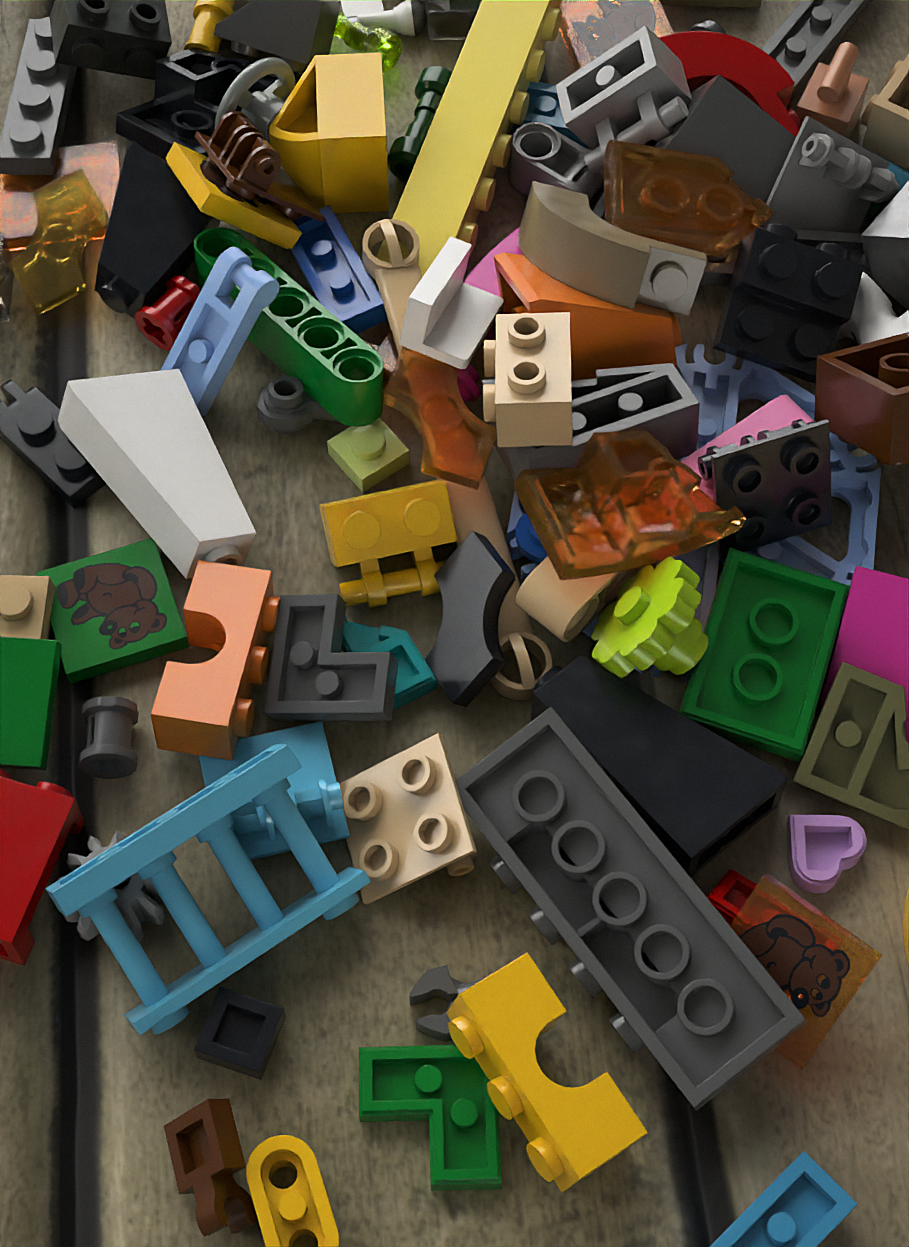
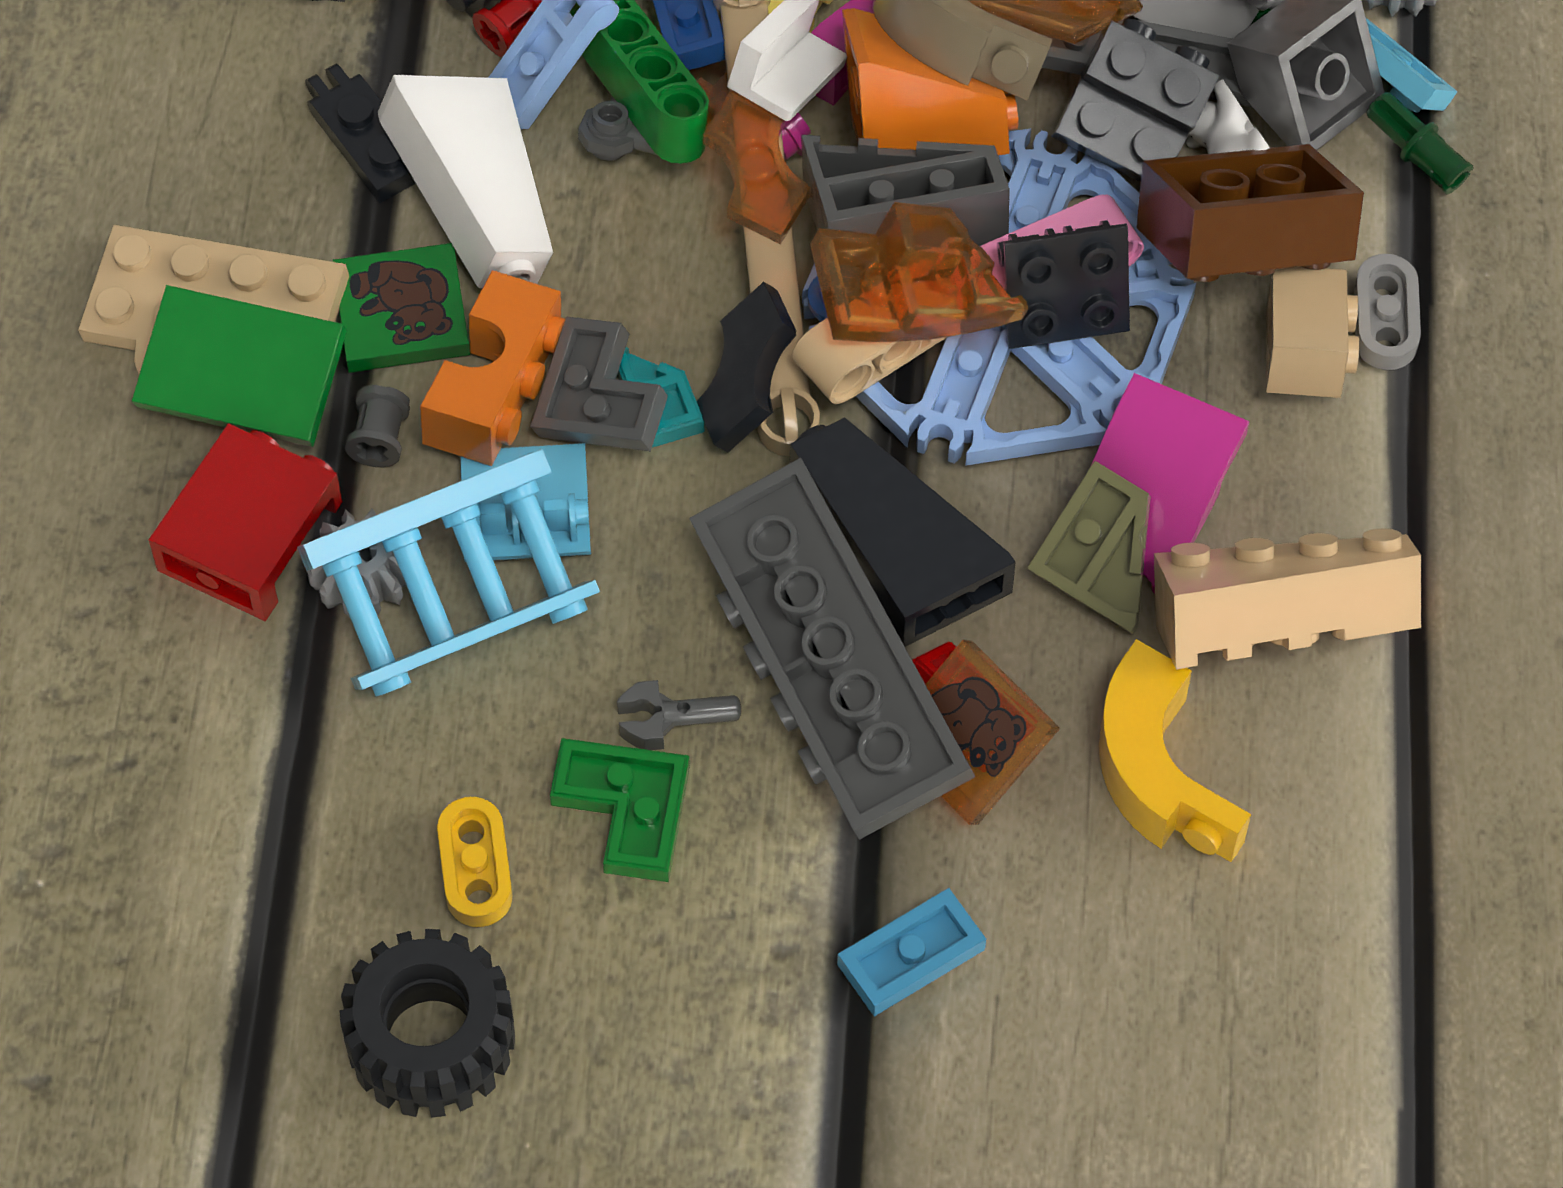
camera: 10 degrees right, 0 degrees up
(204, 1158) = (402, 805): reddish brown plate -> none
(240, 1033) = (454, 707): black plate -> none
(368, 453) = (683, 192): yellowish green plate -> none
(384, 526) = (678, 265): yellow brick -> none
(407, 820) = (647, 545): tan hinge -> none
(531, 380) = (844, 141): tan brick -> none
(566, 1127) = (738, 832): yellow arch -> none
(652, 622) = (918, 396): lime plant -> none
(765, 654) = (1026, 444): green tile -> none
(822, 848) = (1042, 637): lavender tile -> none

